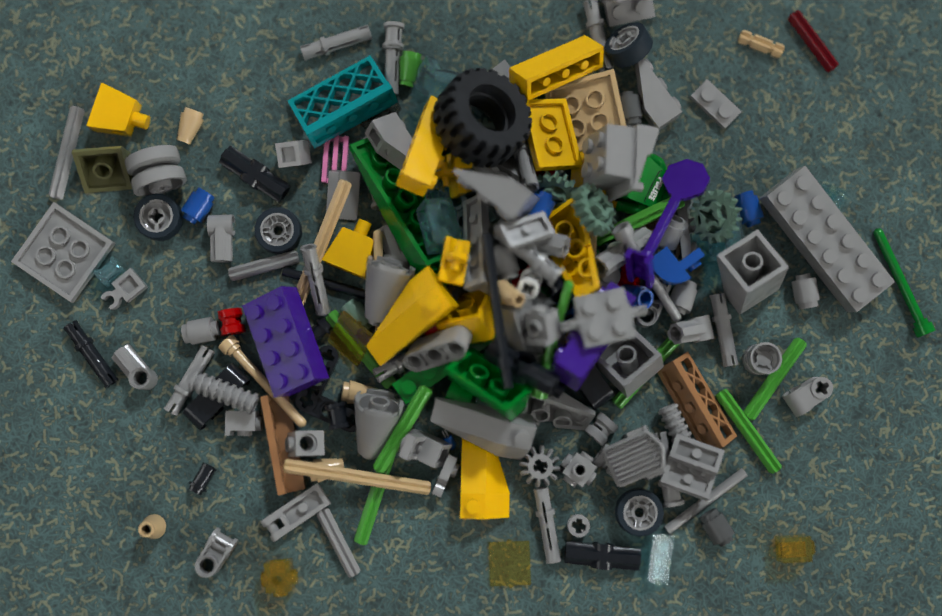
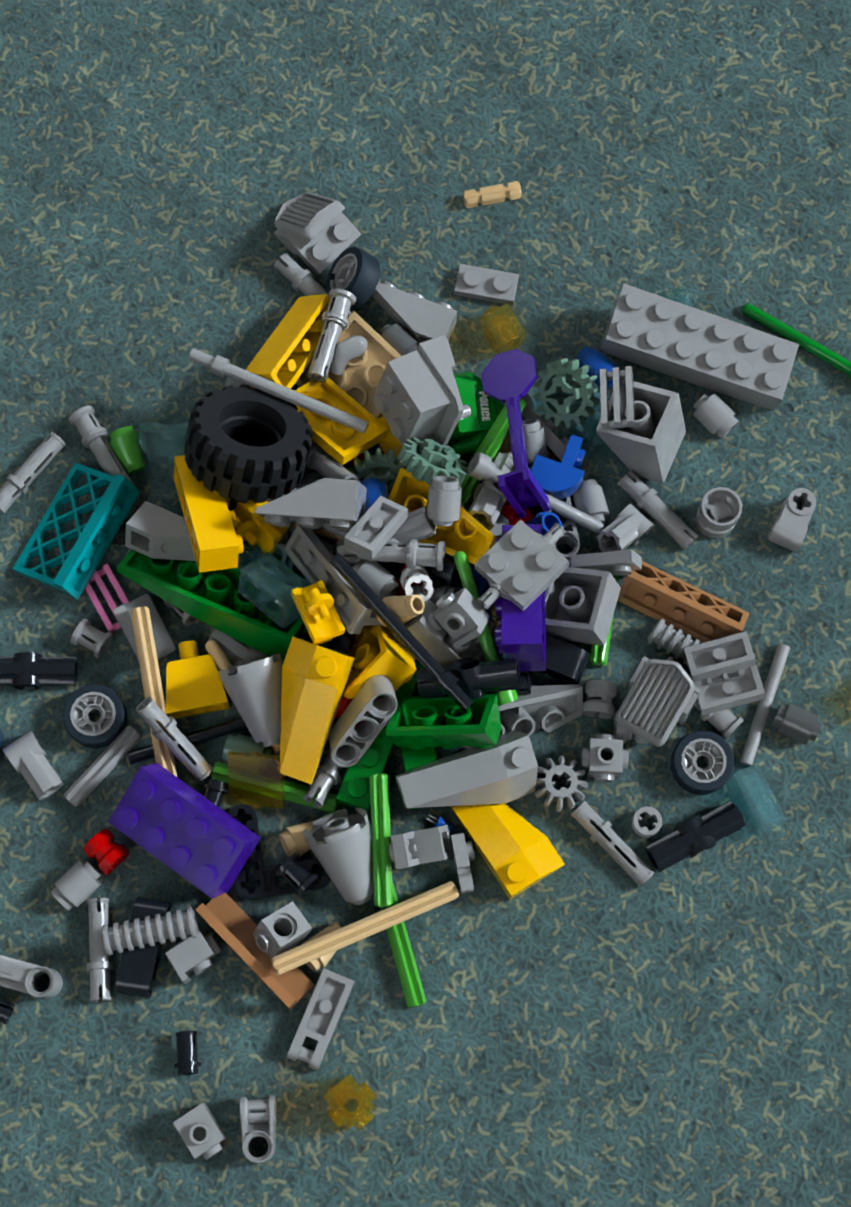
camera: 30 degrees left, 10 degrees down
(157, 525) = (174, 1147): tan cone -> none
(179, 532) = (200, 1132): none -> light grey brick
(231, 347) = (125, 881): tan piece -> none
(293, 153) = (57, 618): light grey brick -> none
(307, 179) = (91, 638): none -> light grey bush
(338, 542) = (392, 1021): light grey axle -> none
(499, 55) = (221, 366): none -> light grey bar
(509, 563) = (600, 915): clear yellow piece -> none
(582, 241) = (444, 500): none -> light grey brick
(590, 93) = (345, 351): none -> light grey arm
(594, 69) = (333, 322): none -> light grey pin
(672, 350) = (617, 562): none -> light grey plate
(704, 142) = (502, 328): none -> clear yellow brick
(748, 431) = (758, 600): bright green axle -> none
(755, 226) = (616, 375): none -> light grey tile
(774, 379) = (747, 528): bright green axle -> none
(813, 41) = (544, 159): dark red axle -> none

